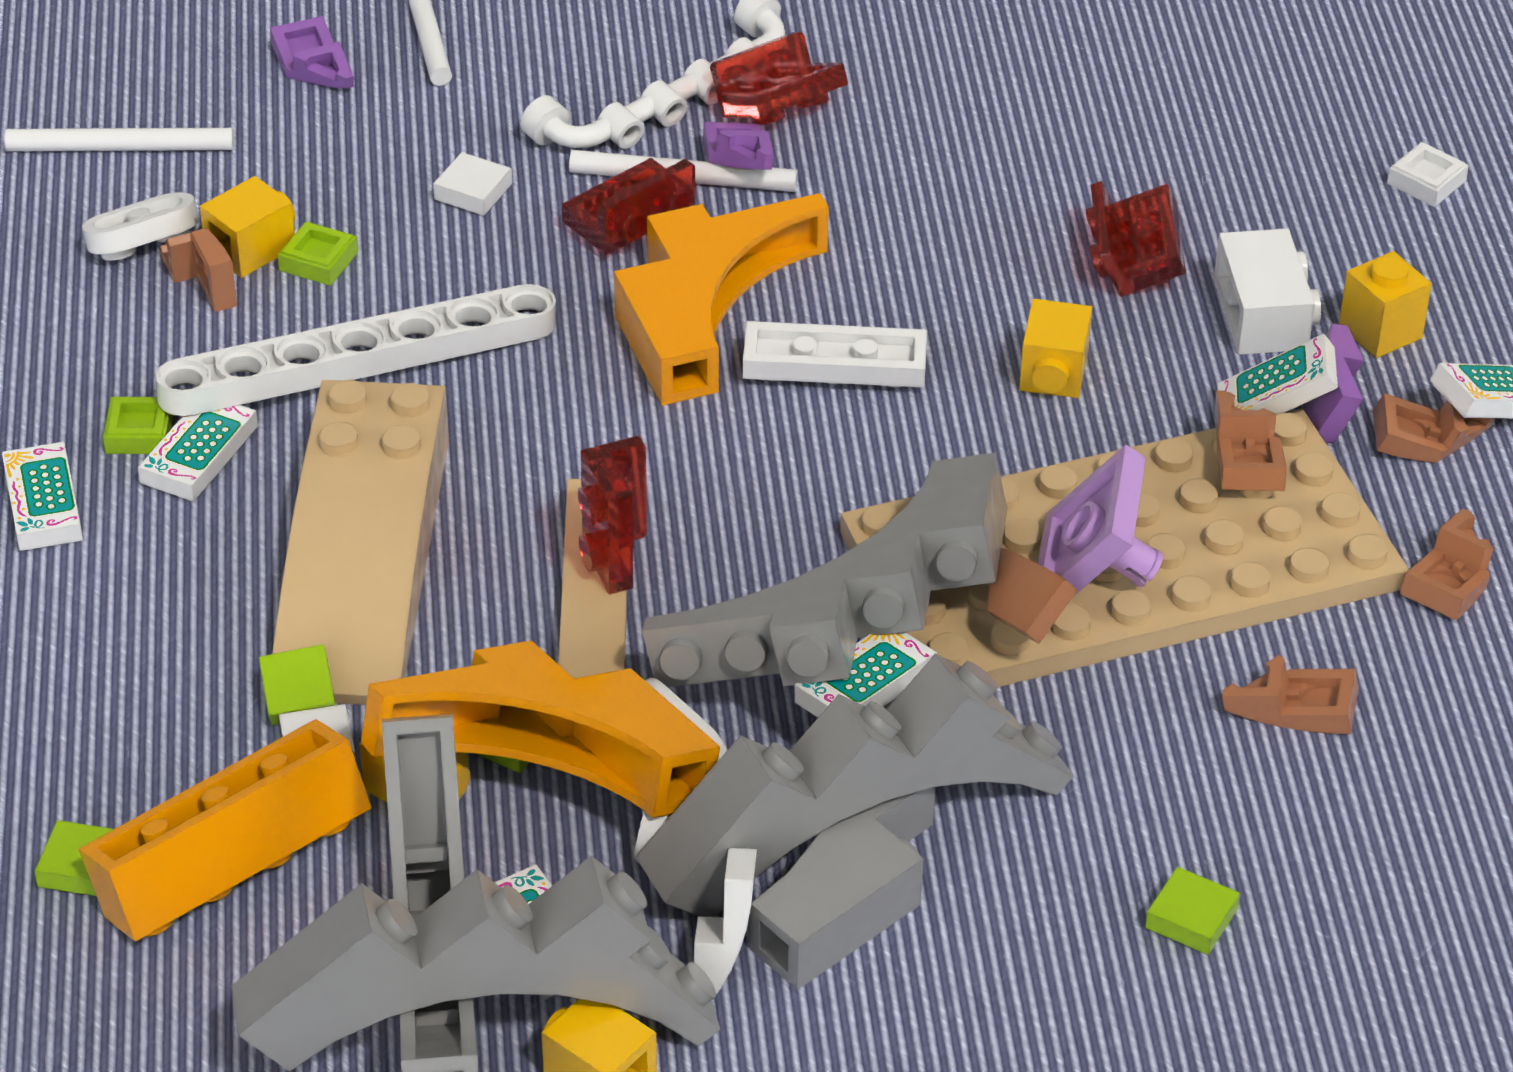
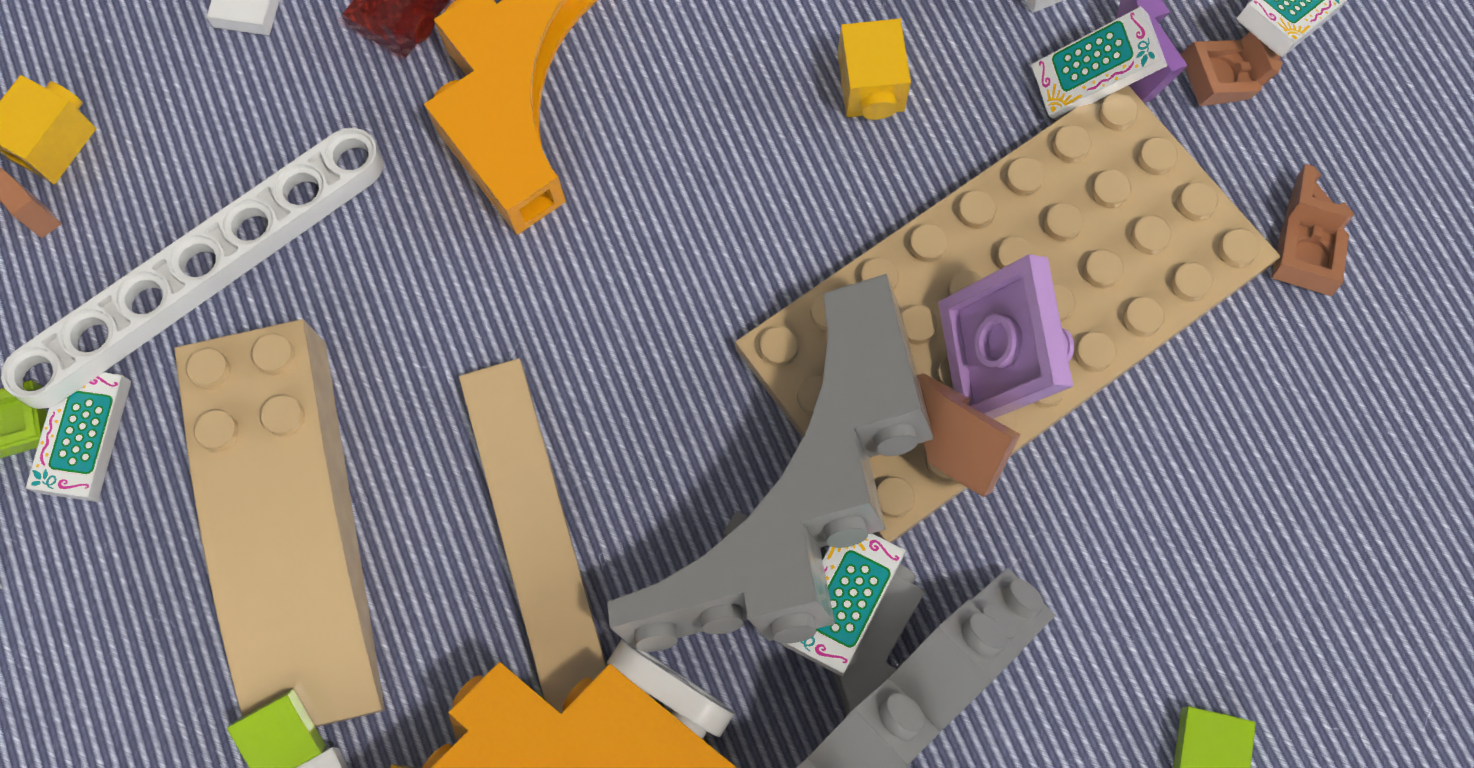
camera: 15 degrees left, 30 degrees up
(318, 253) = (120, 135): lime tile -> none
(612, 509) = (513, 431): clear red bracket -> none
(835, 354) = (666, 133): white plate -> none
(1247, 447) = (1098, 159): nougat slope -> none
(1297, 698) = (1229, 444): nougat slope -> none

